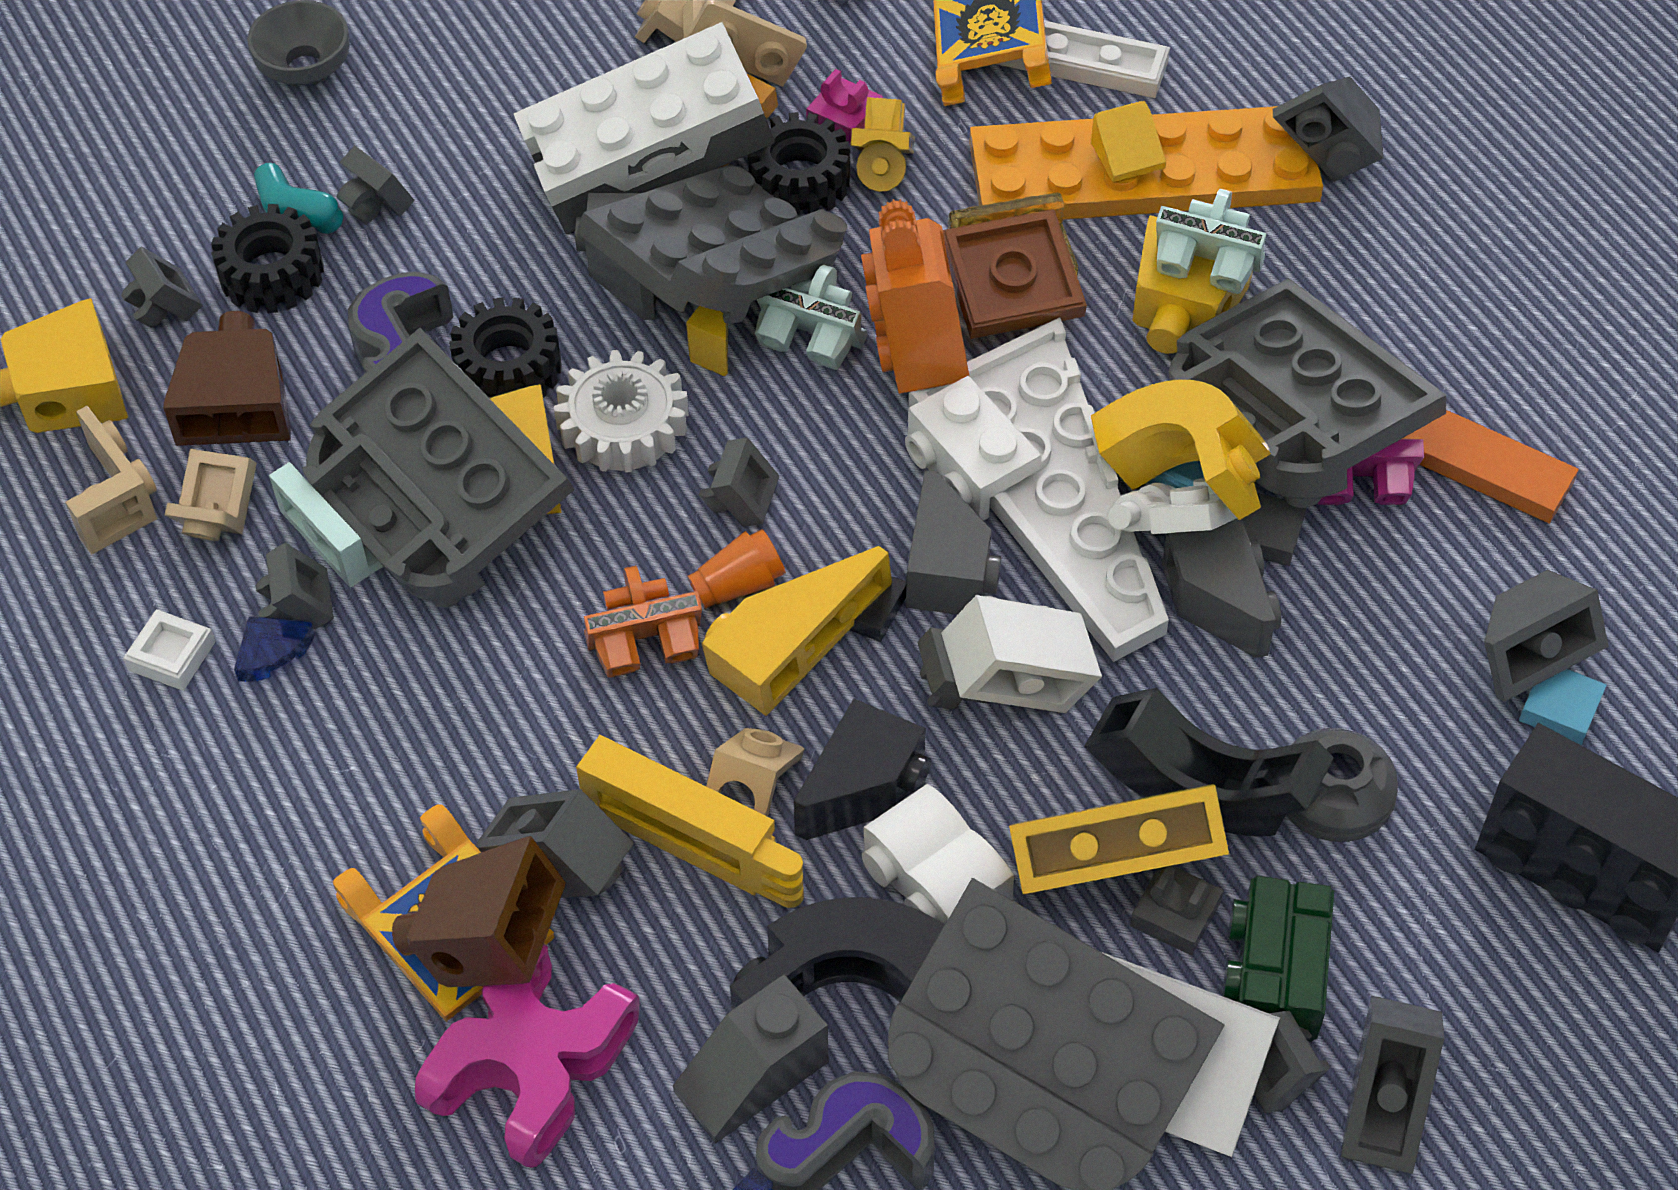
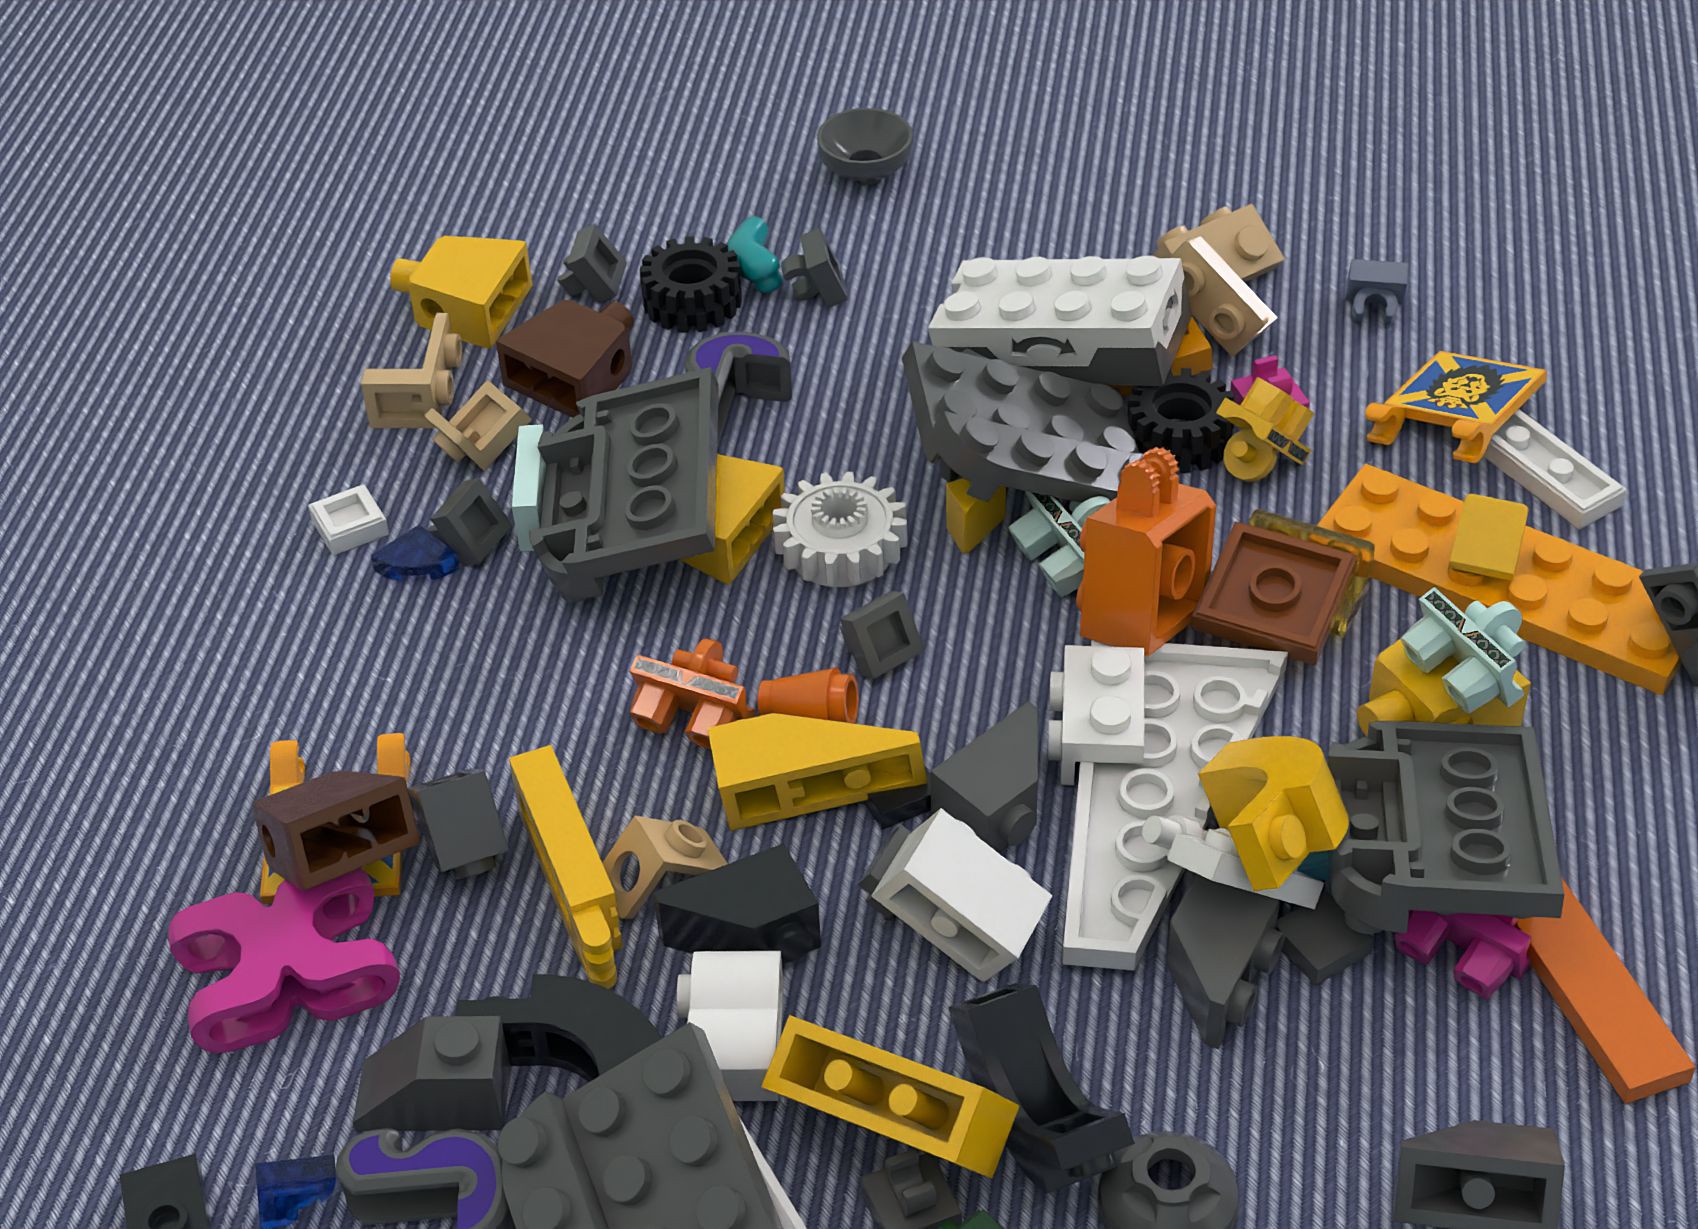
camera: 40 degrees right, 10 degrees down
(502, 328) = (798, 418): black tyre -> none

